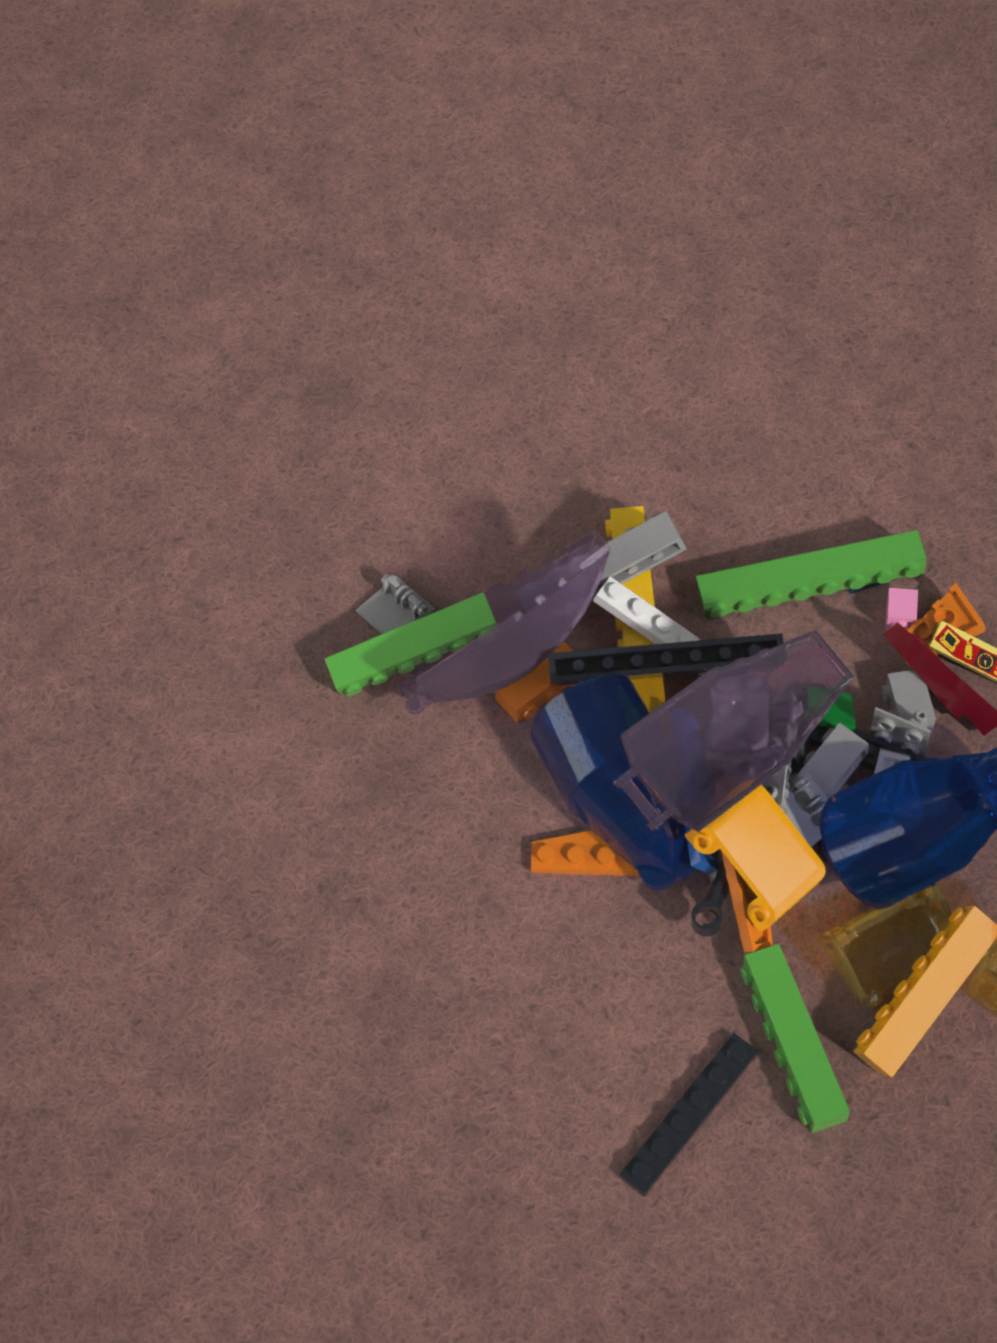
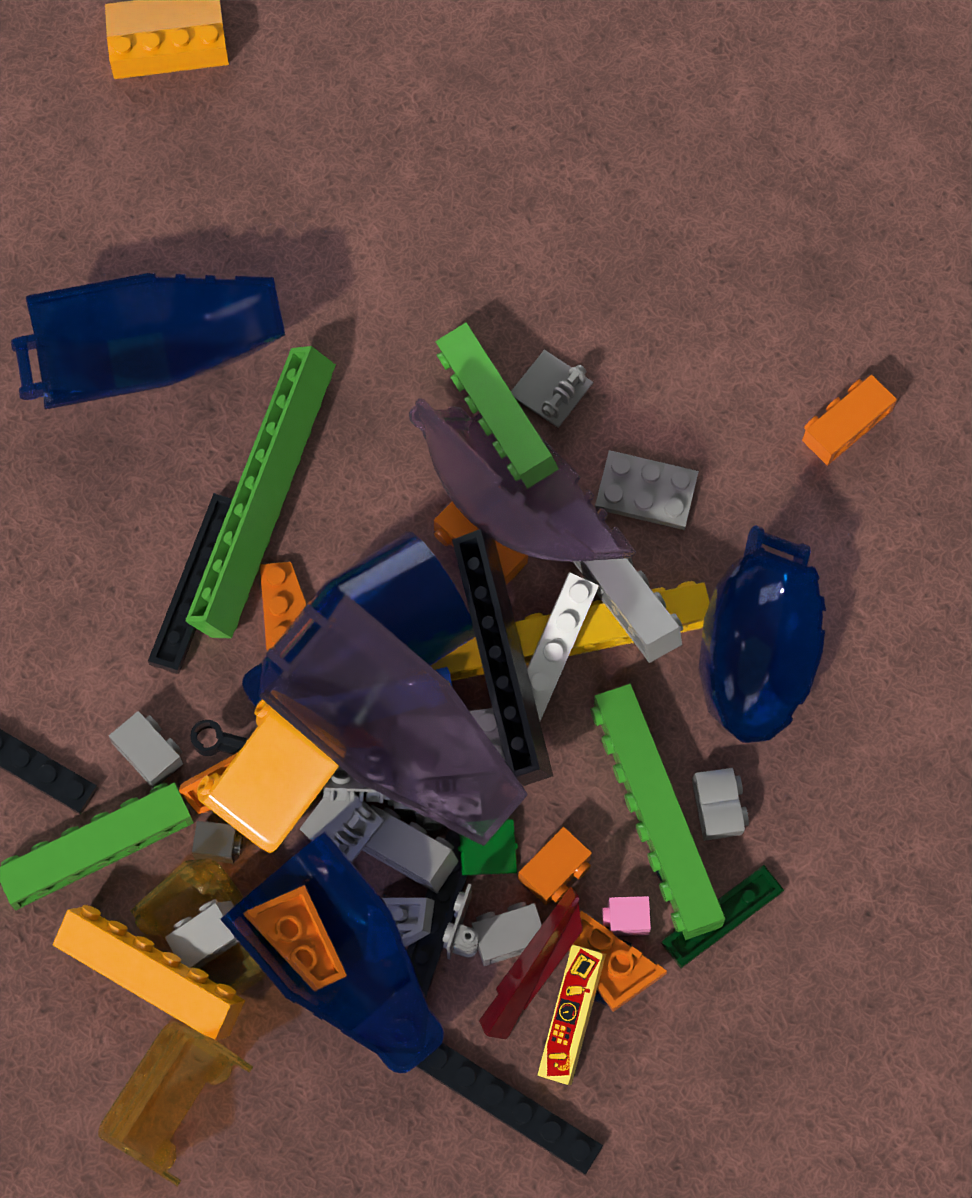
camera: 75 degrees right, 10 degrees up
(287, 933) = (142, 334): none -> clear blue windscreen
(461, 855) = (260, 493): none -> bright green brick
(472, 387) = (848, 419): none -> orange brick
(508, 547) = (646, 490): none -> light grey plate
(541, 926) = (175, 633): none -> black plate
(674, 469) = (762, 639): none -> clear blue windscreen
(704, 982) = (146, 749): none -> light grey brick
(802, 930) = (216, 842): none -> dark grey brick
(807, 531) = (719, 803): none -> light grey brick
(861, 661) = (555, 867): none -> orange brick
(889, 522) = (737, 907): none -> dark green tile
(894, 938) = (203, 937): none -> light grey brick
(905, 858) = (299, 936): none -> orange wing

